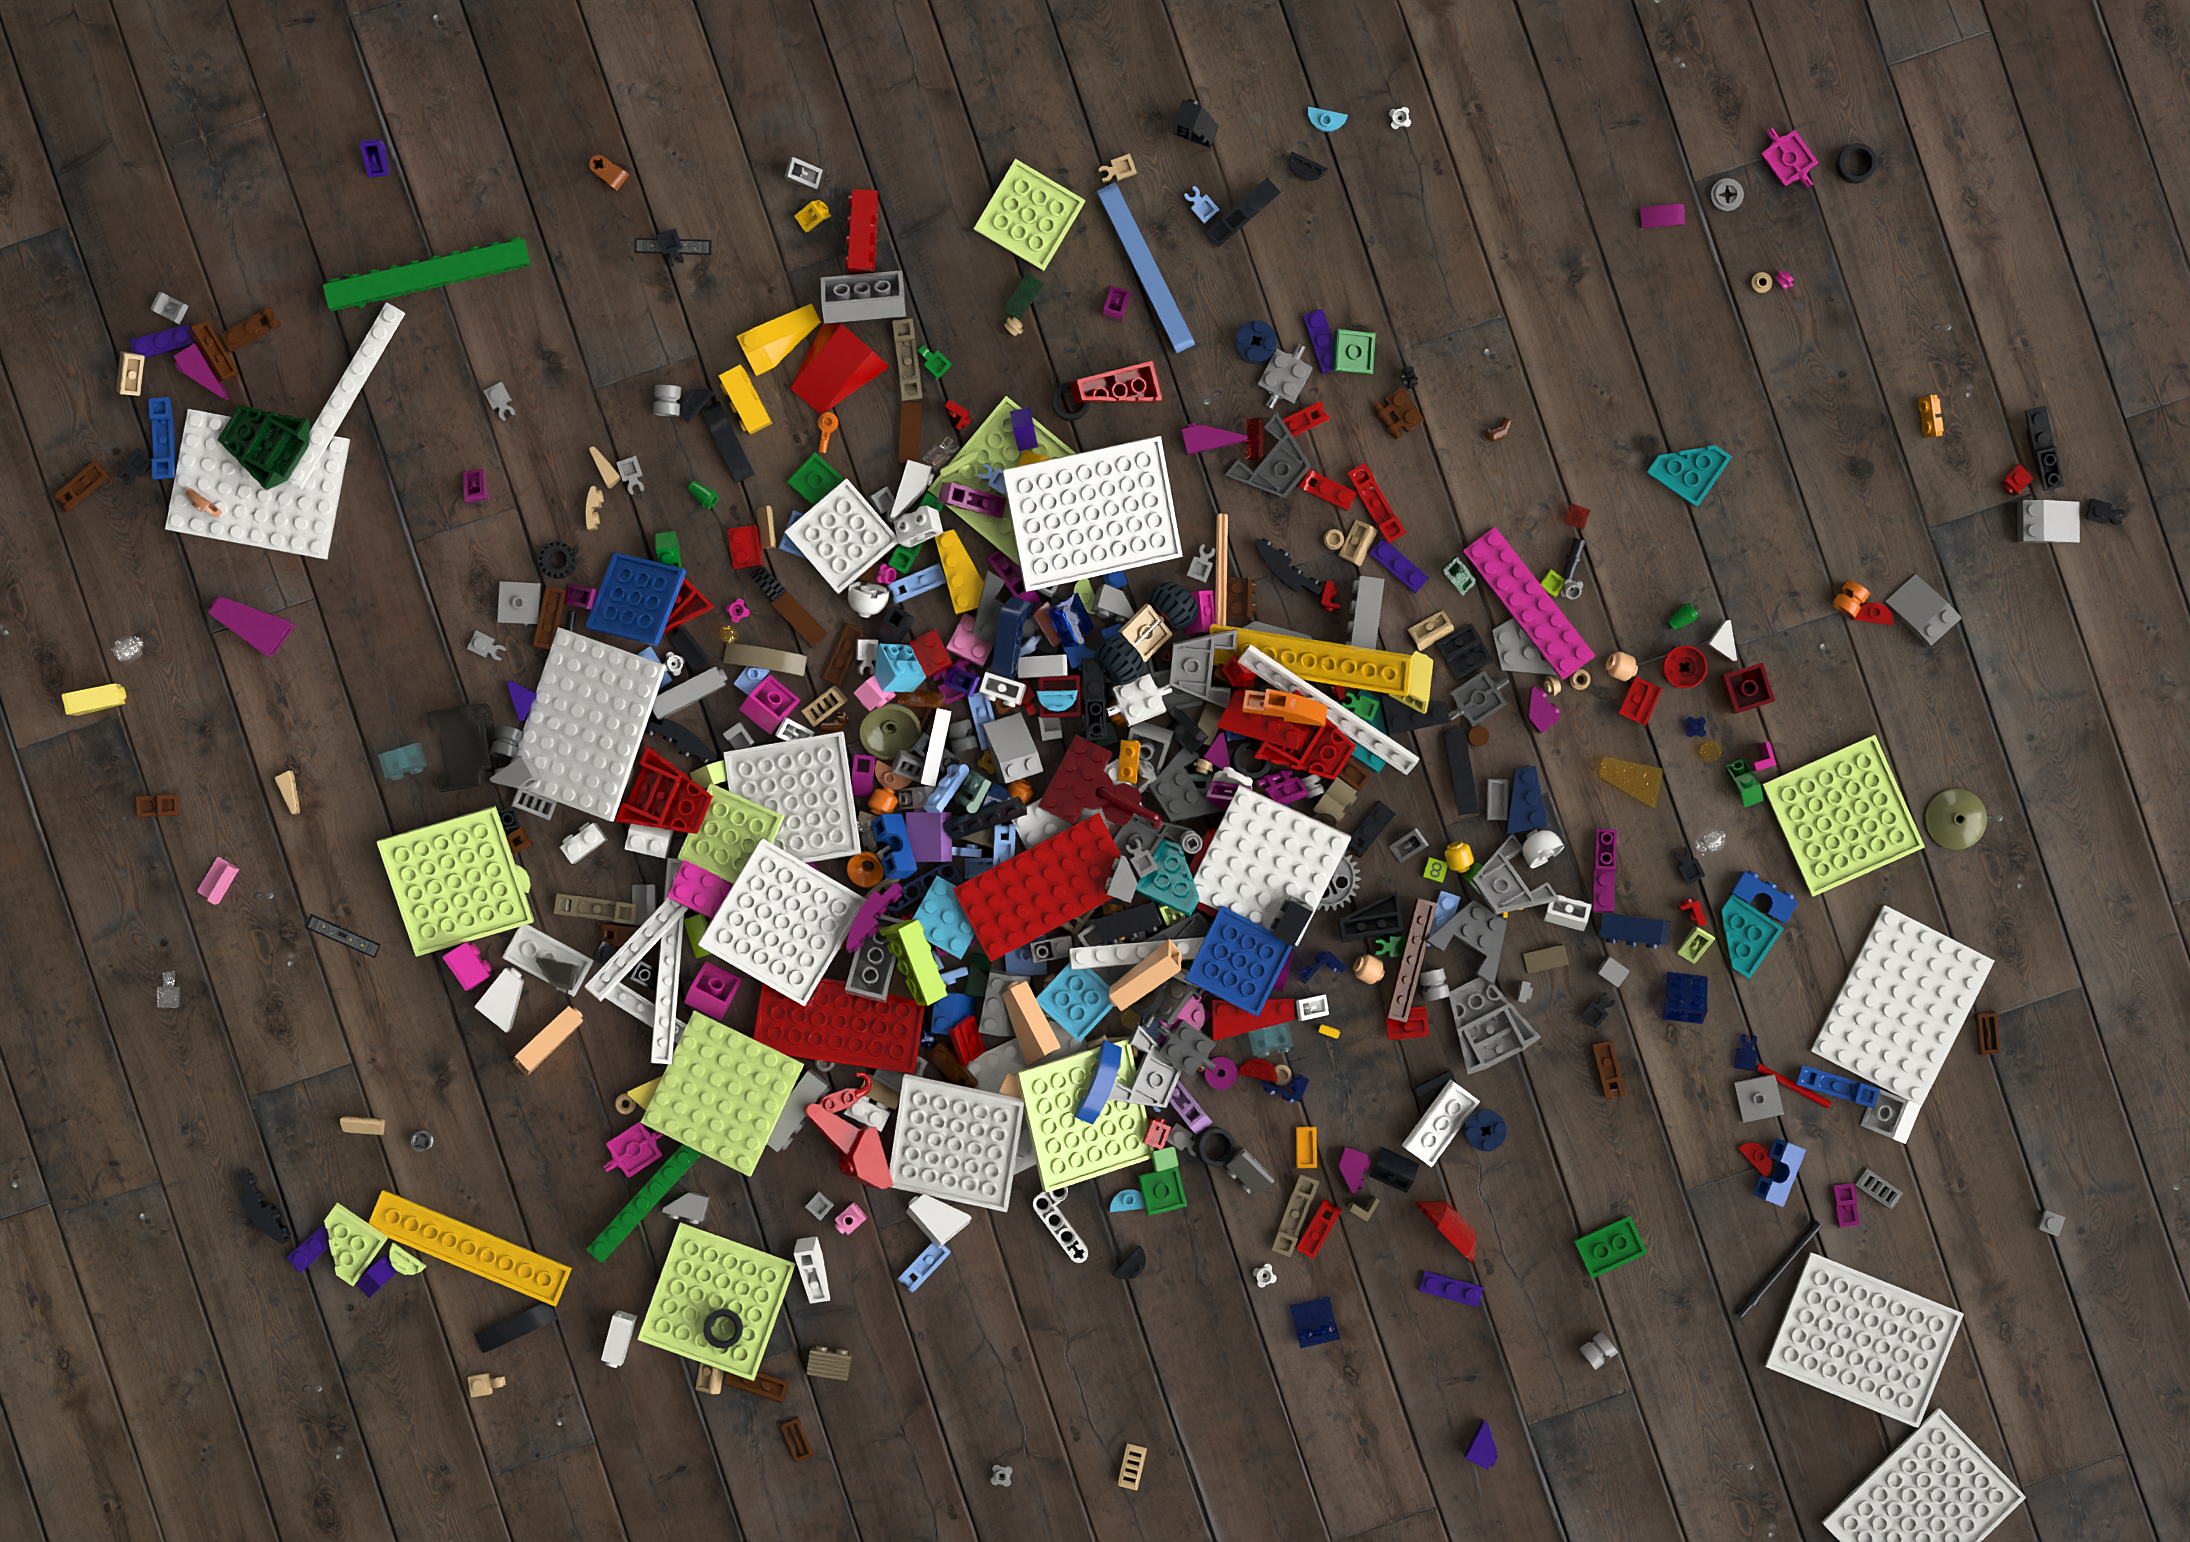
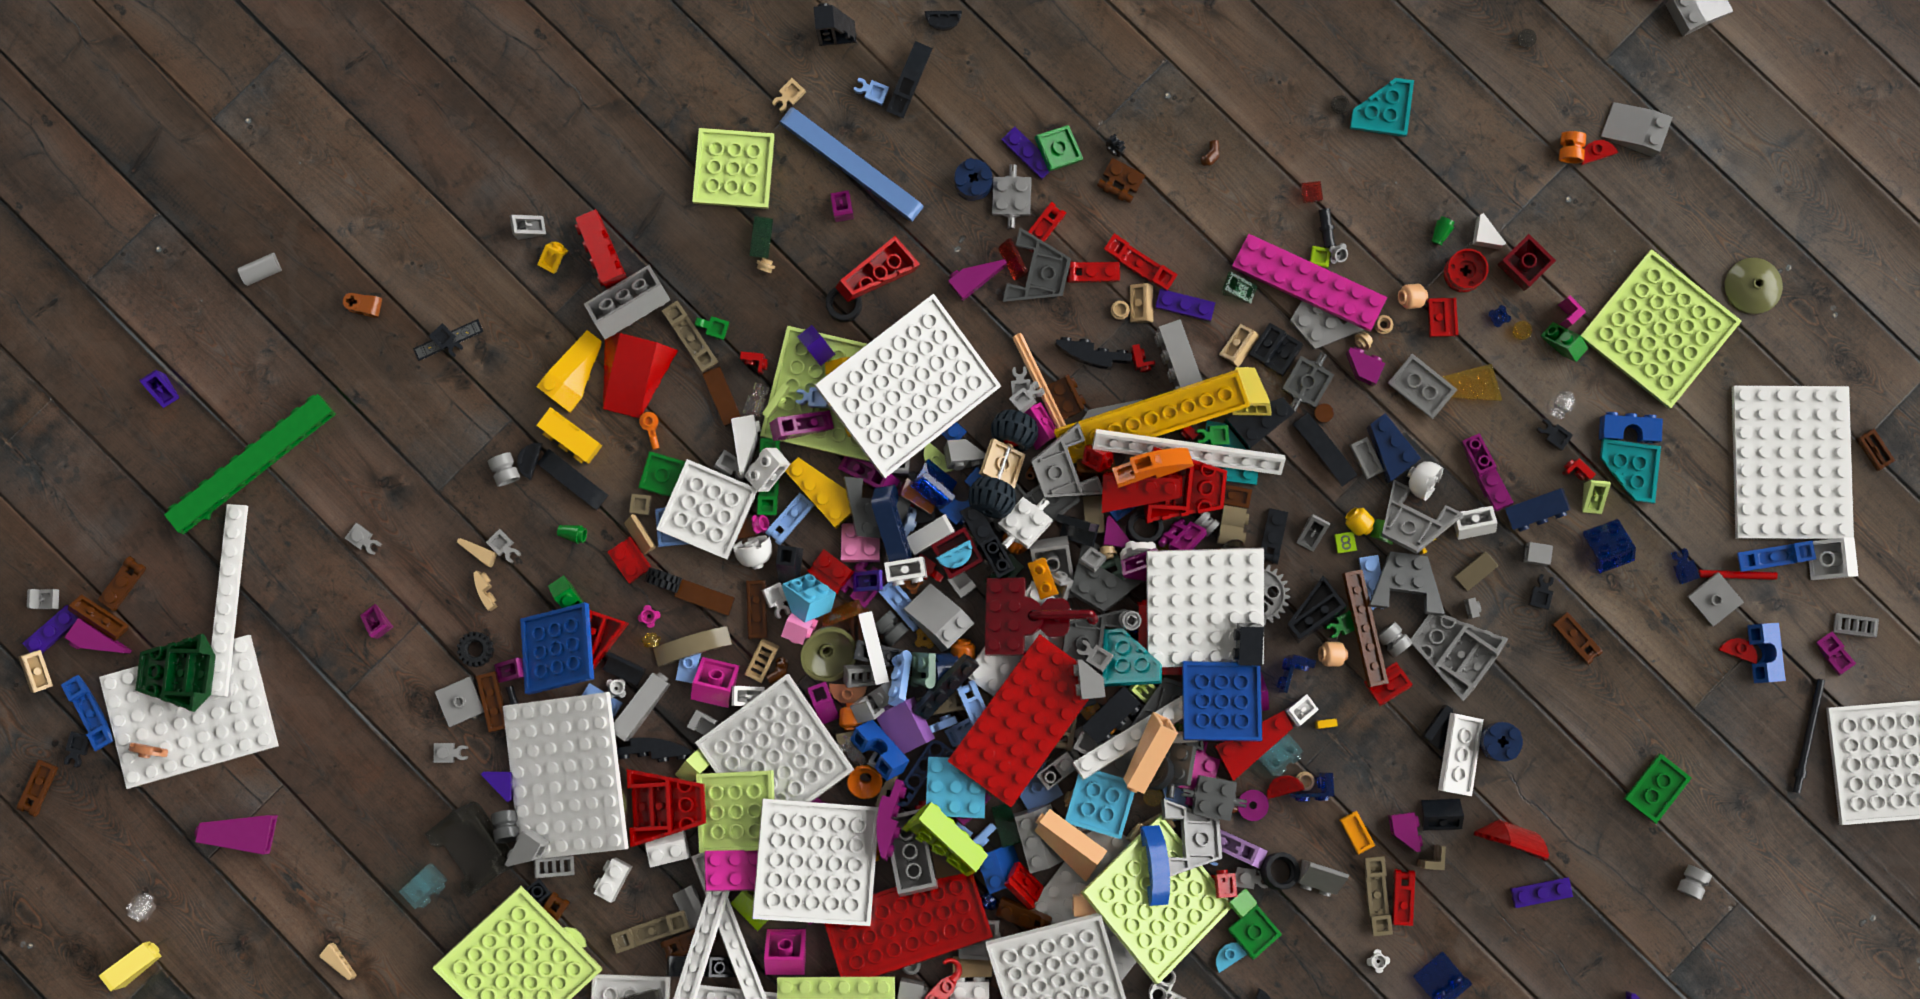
camera: 25 degrees left, 5 degrees down
(524, 86) = (259, 269): none -> light grey brick
(781, 499) = (640, 504): none -> dark tan plate
(897, 802) = (863, 711): none -> light grey panel
(1185, 766) = (1092, 559): none -> light grey tile
(1197, 581) = (1025, 399): none -> light grey plate
(1585, 757) = (1422, 386): none -> light grey tile

